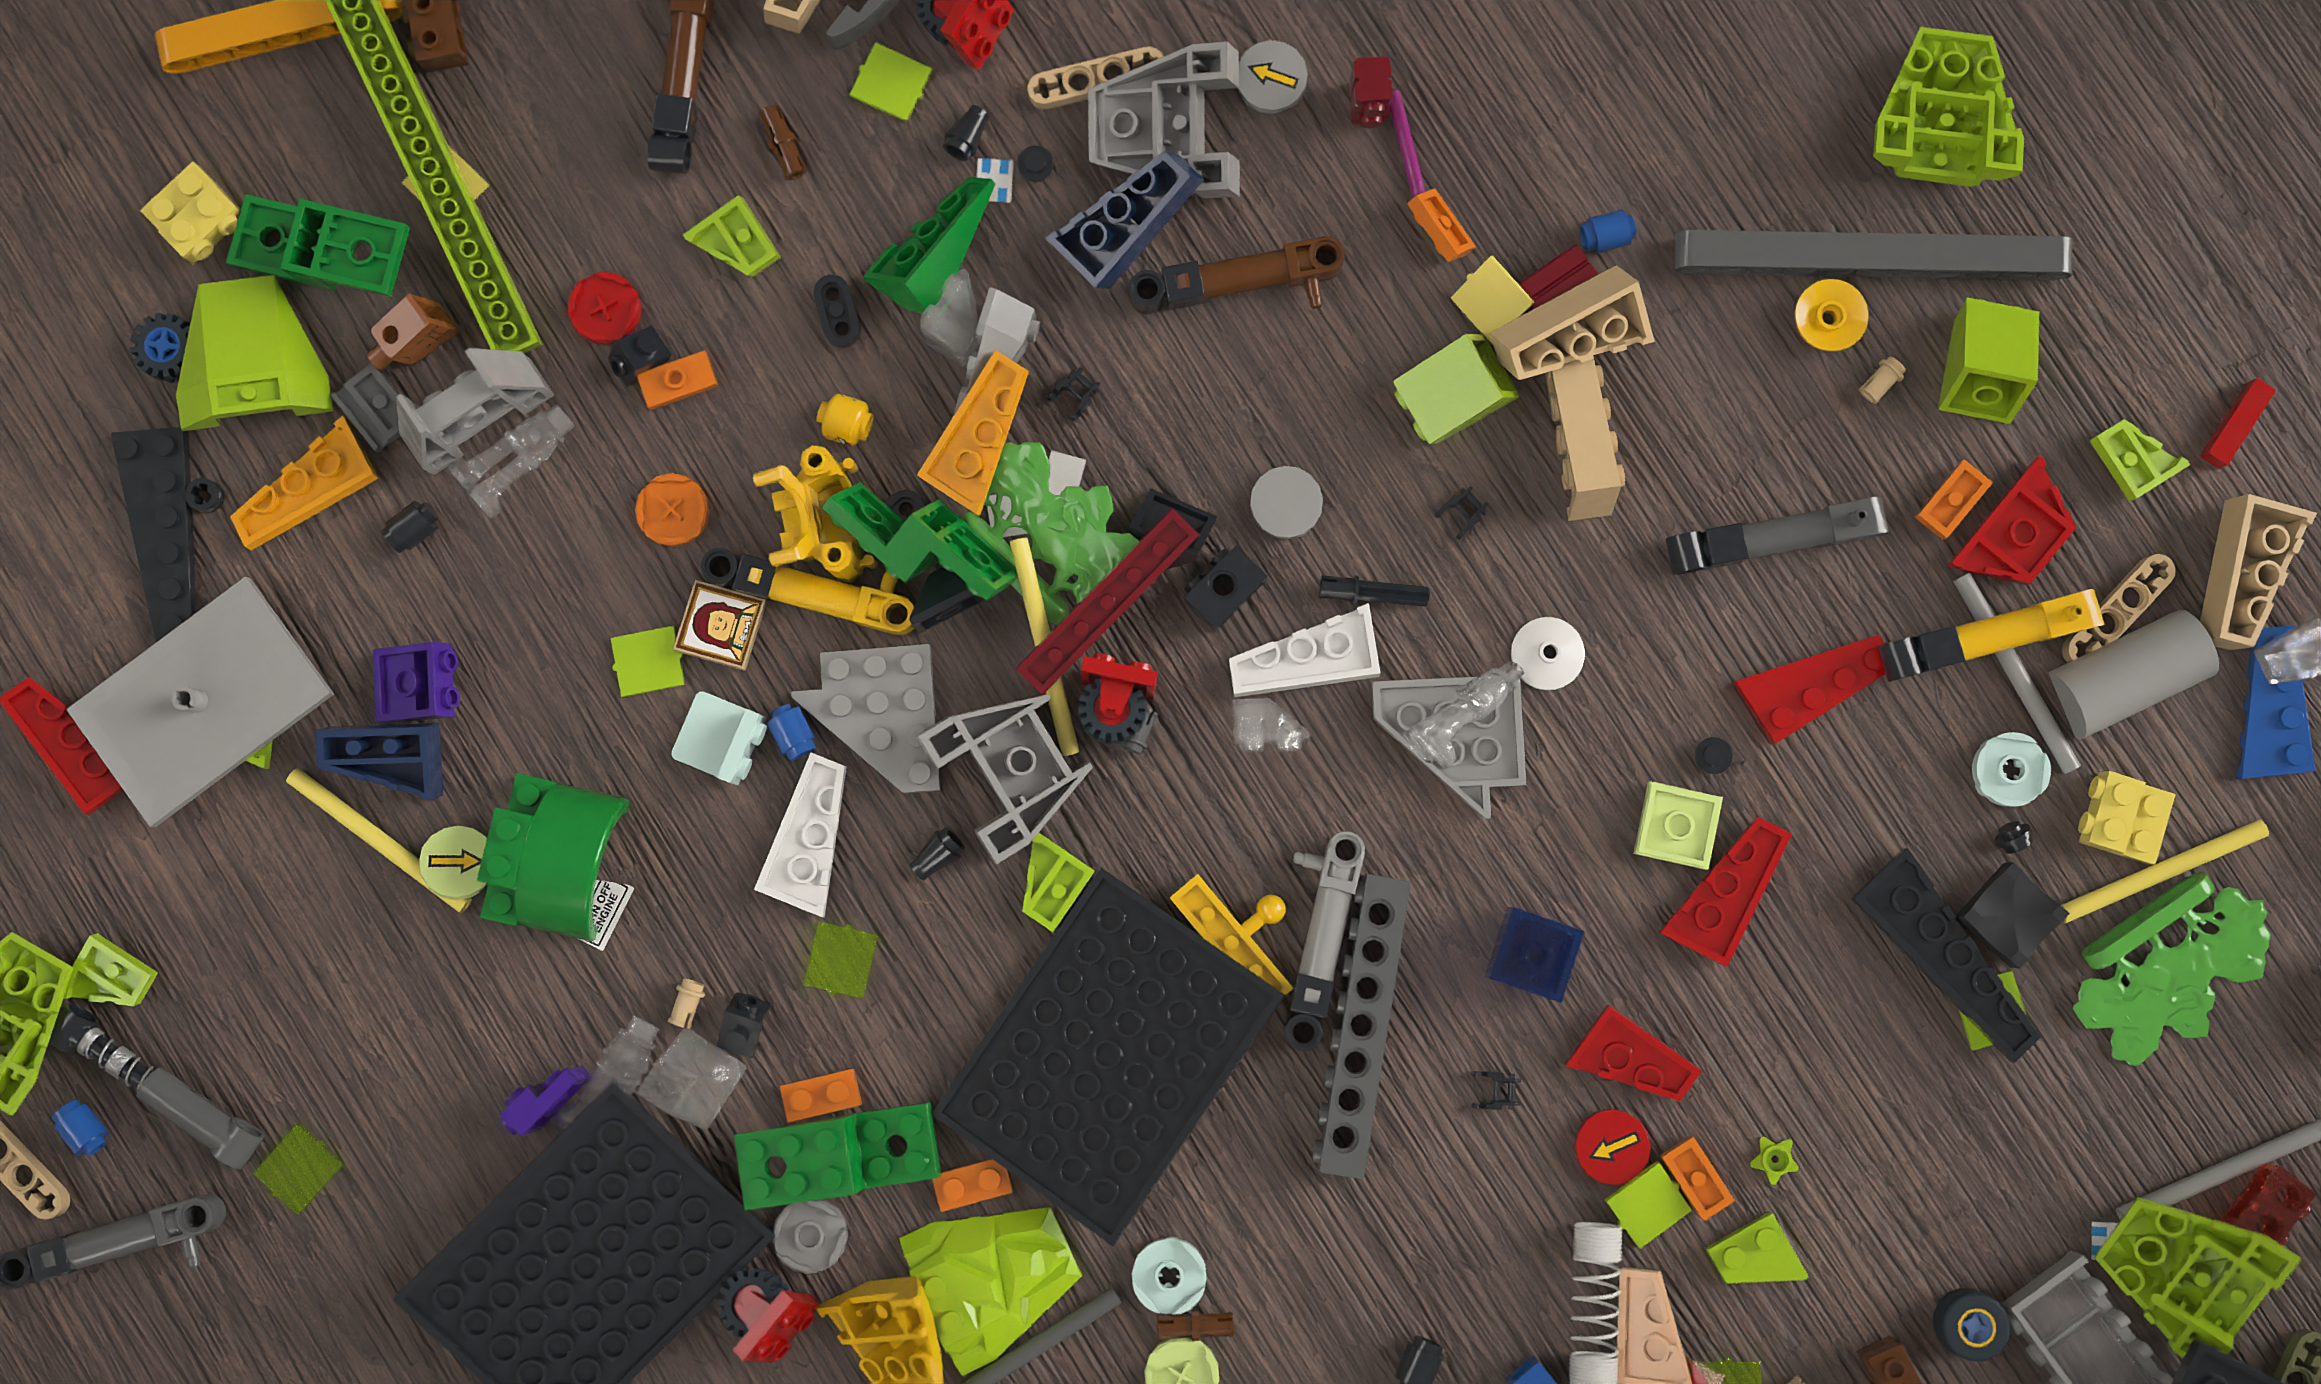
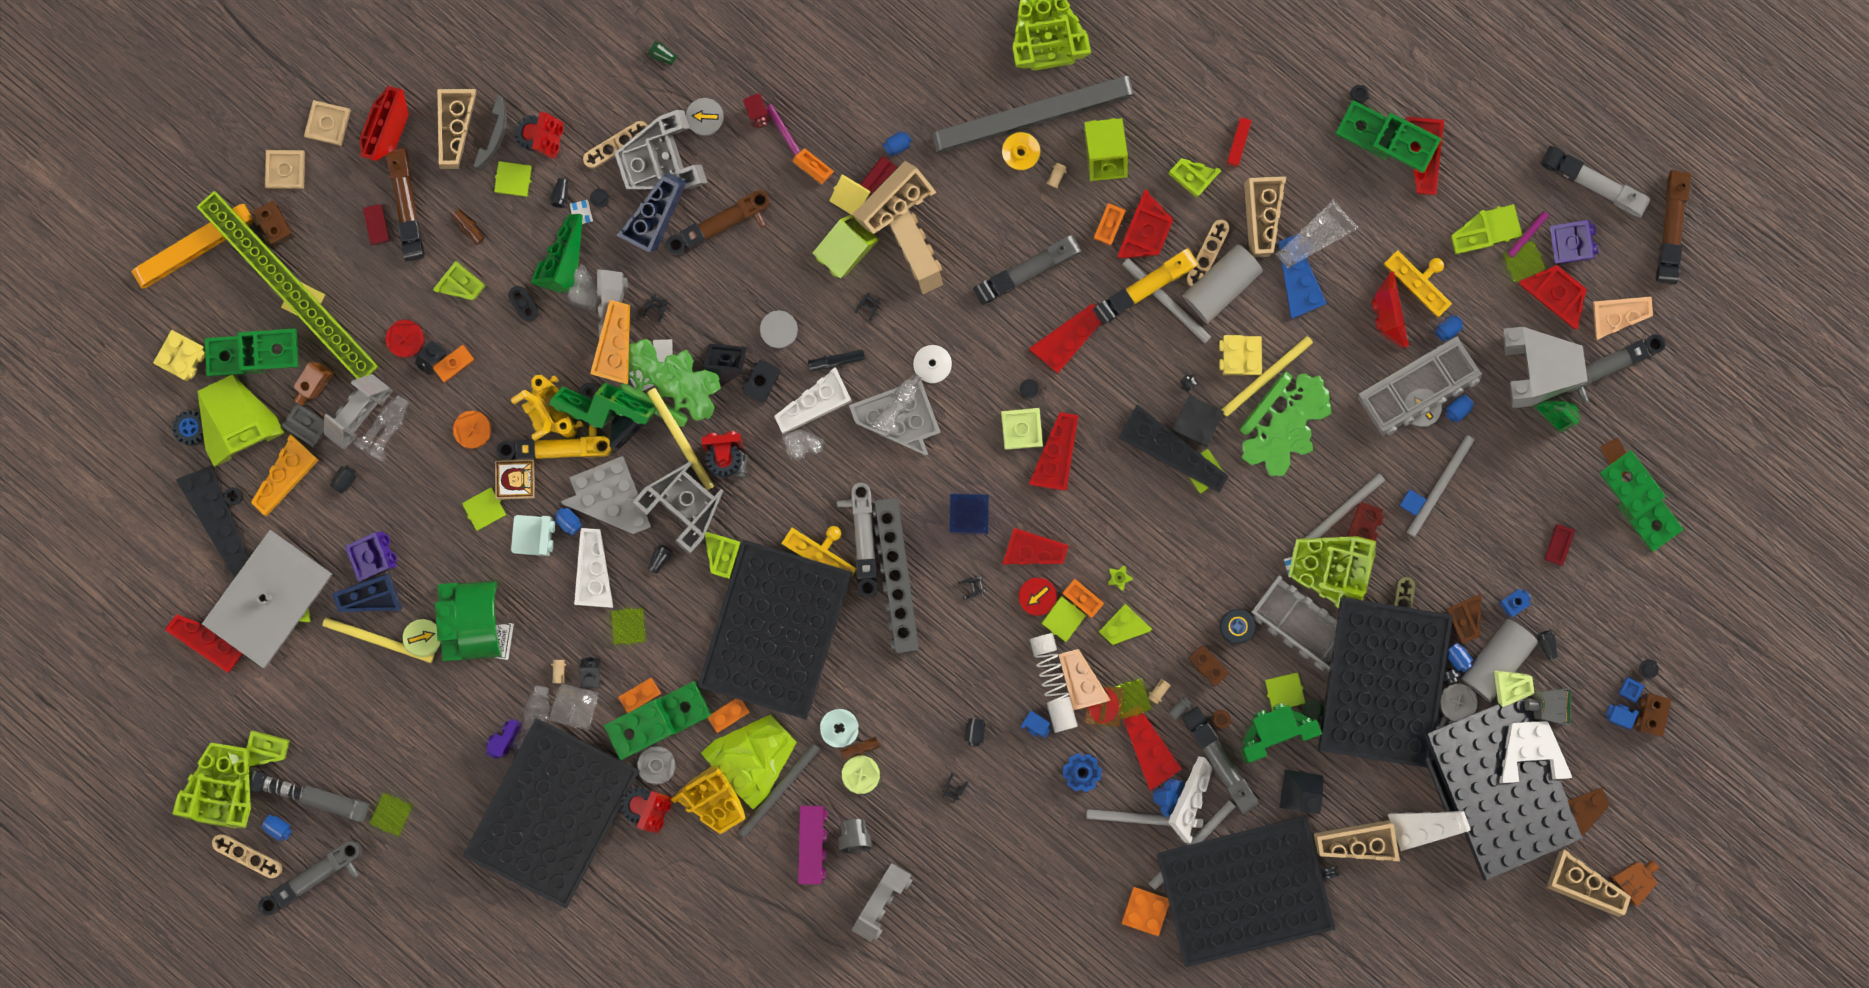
camera: 20 degrees left, 0 degrees up
(620, 87) = (376, 224): none -> dark red tile
(845, 419) = (544, 357): yellow head -> none
(1107, 601) = (704, 406): dark red plate -> none
(1993, 782) = (1184, 341): light aqua plate -> none

